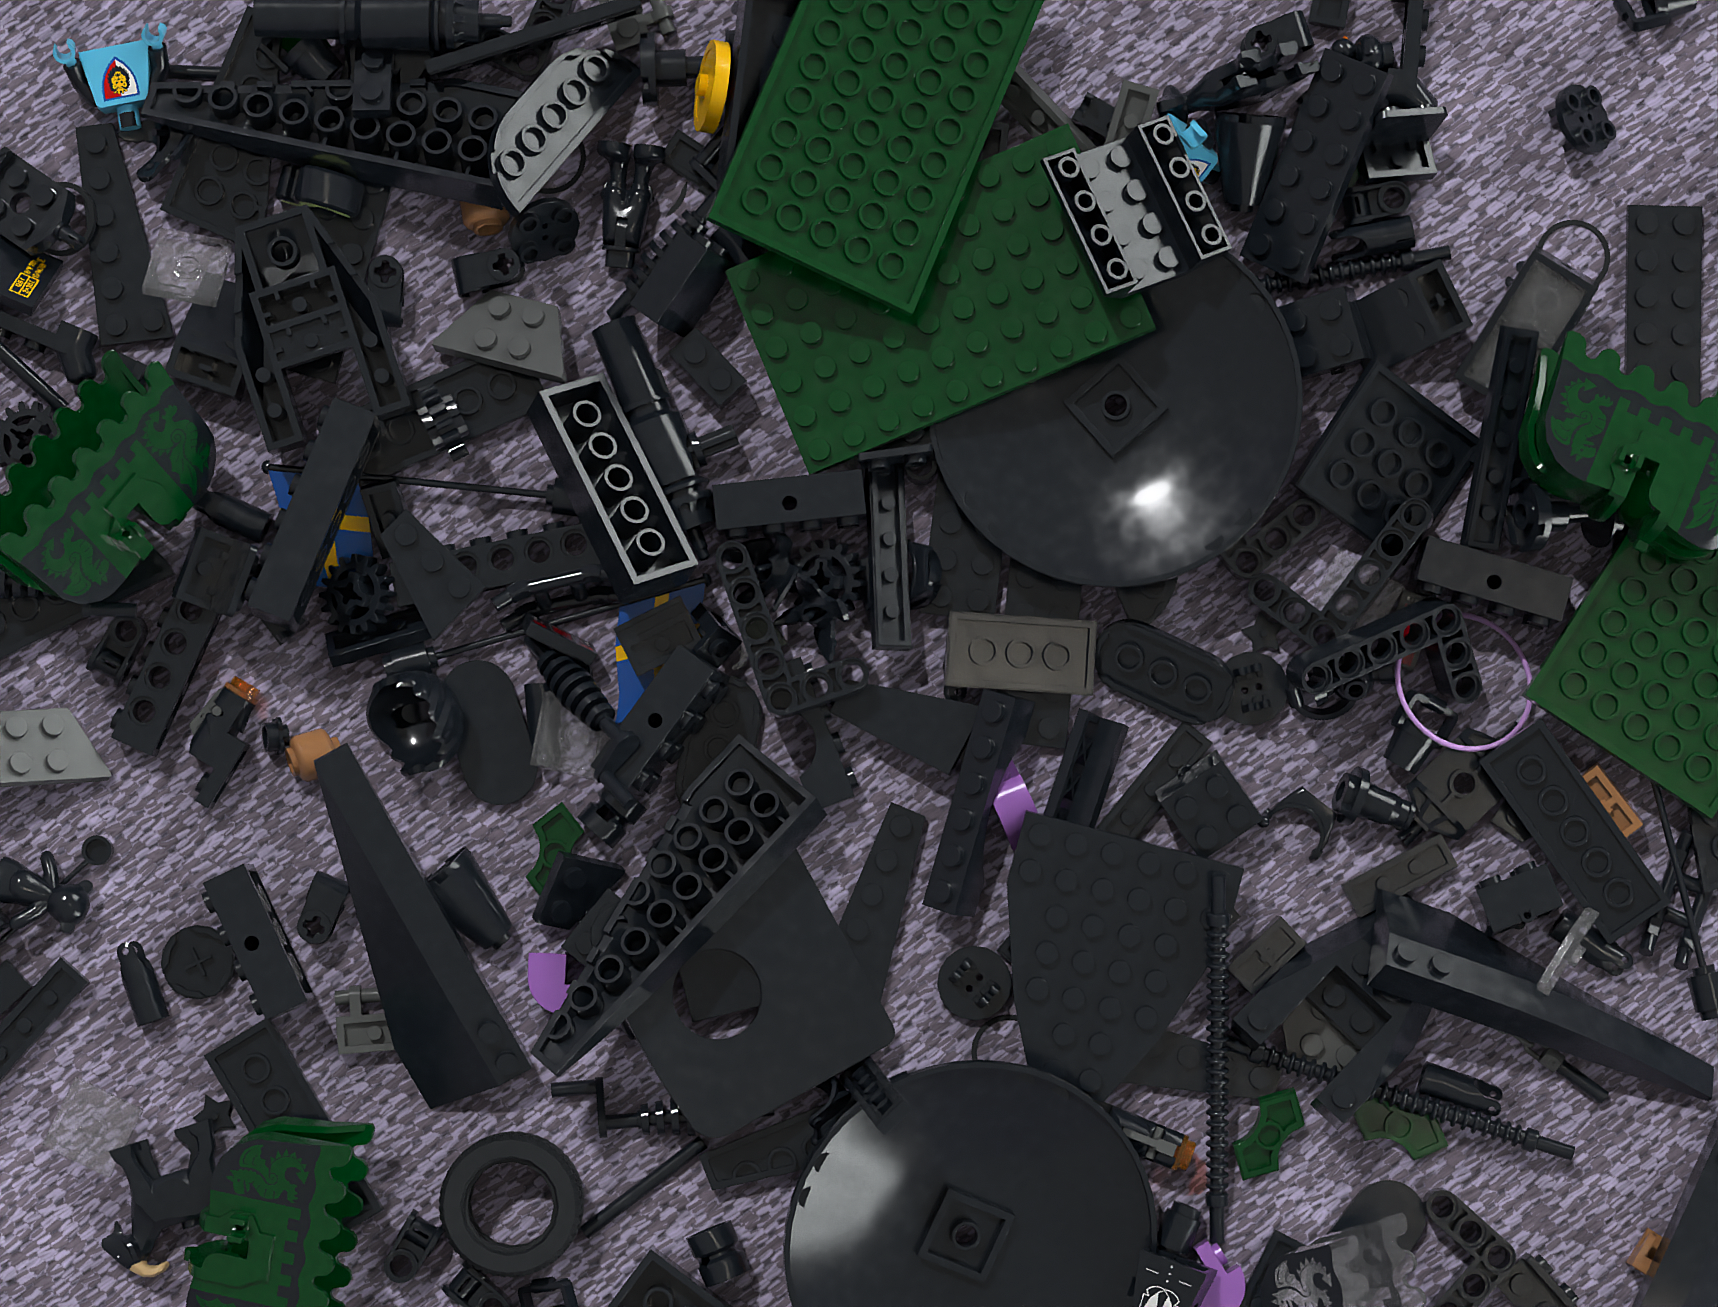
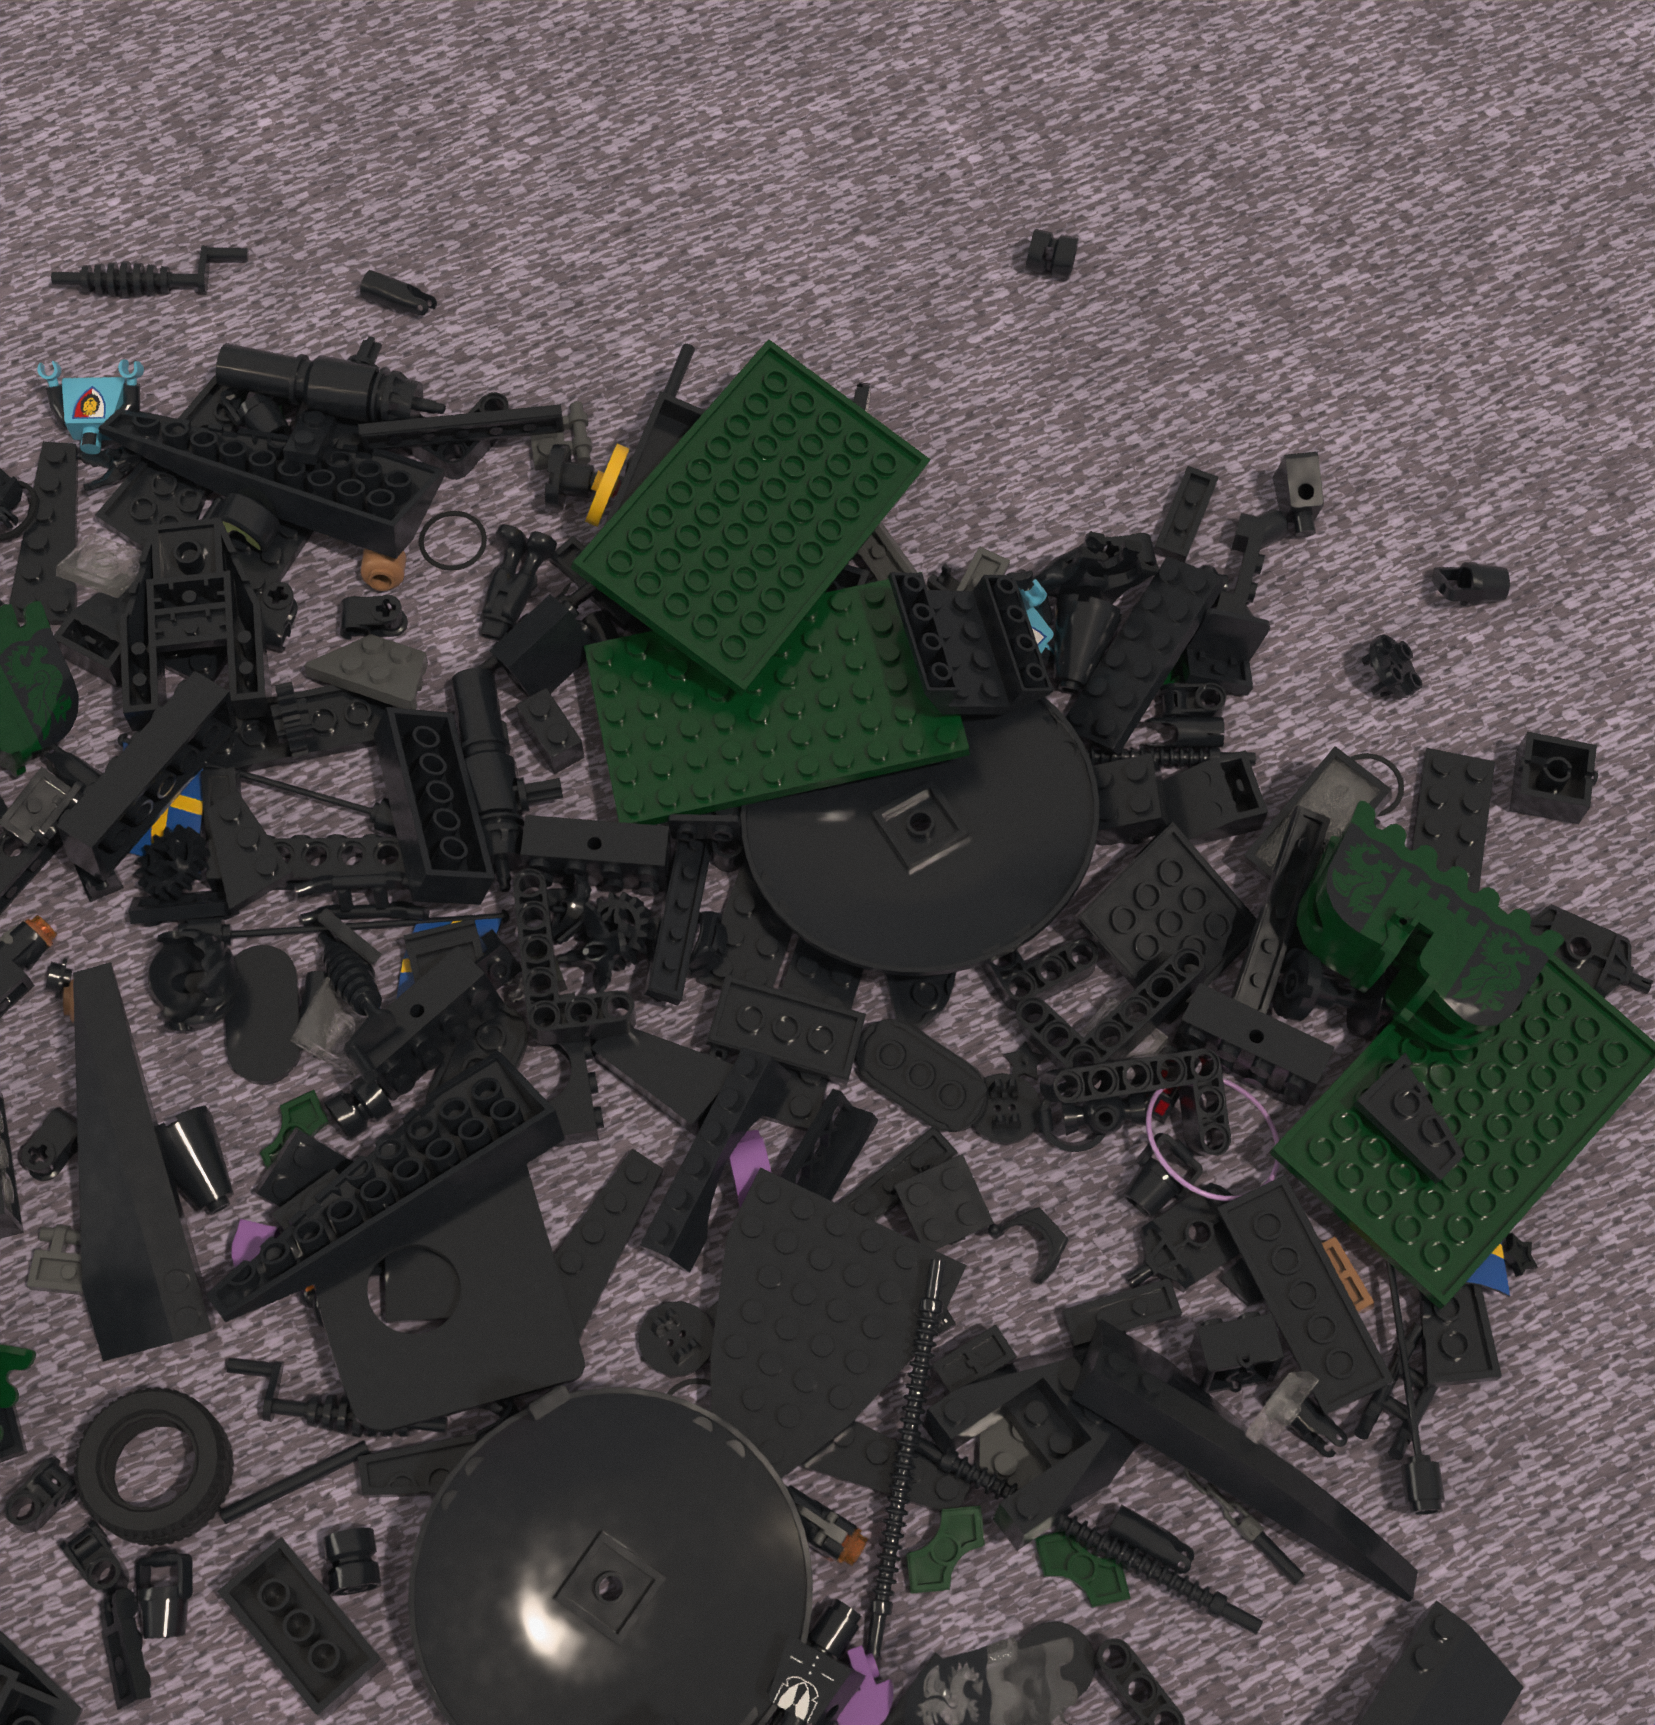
camera: 10 degrees right, 20 degrees down
(539, 241) = (414, 587): black plate -> none
(553, 120) = (459, 492): plate -> none
(1361, 799) = (1104, 1234): black piece -> none
(1655, 638) = (1407, 1118): none -> black wing

